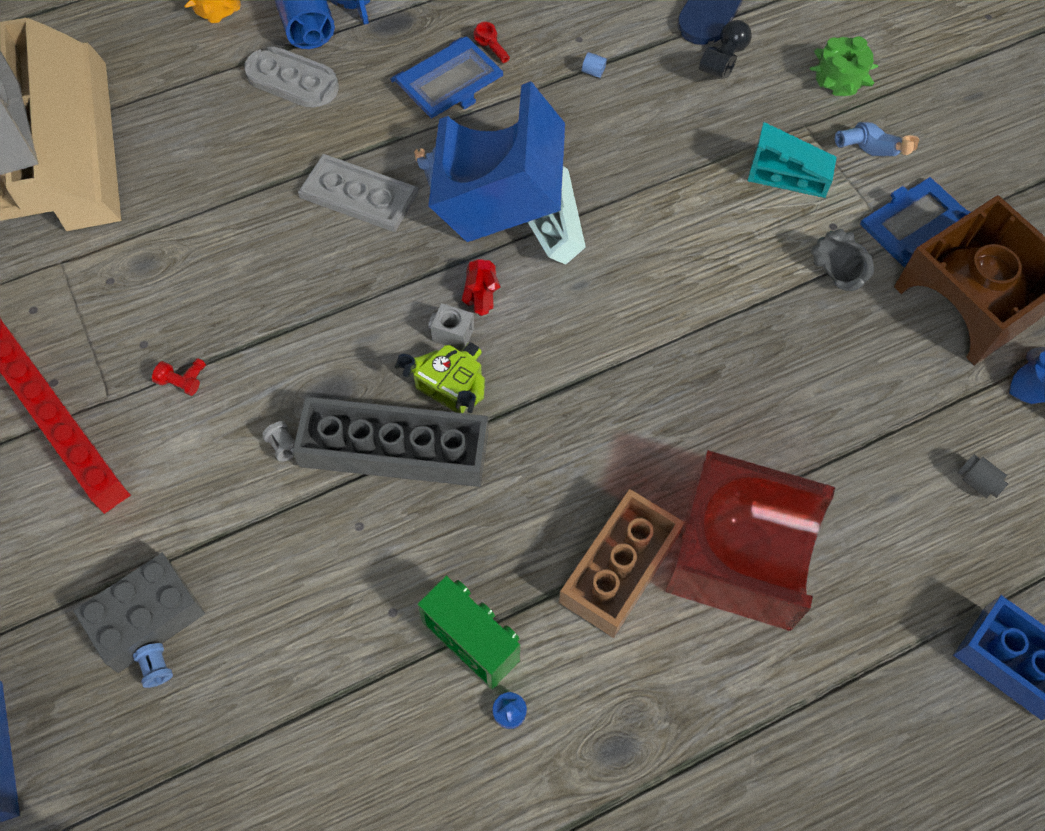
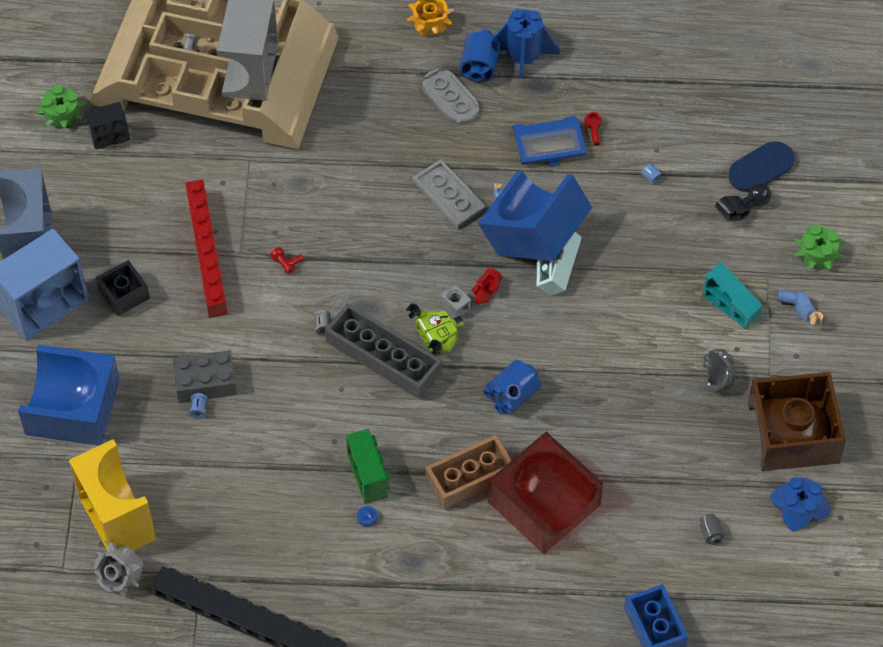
camera: 30 degrees right, 5 degrees down
(604, 407) = (512, 386): none -> blue cylinder
(913, 218) = (792, 361): blue piece -> none

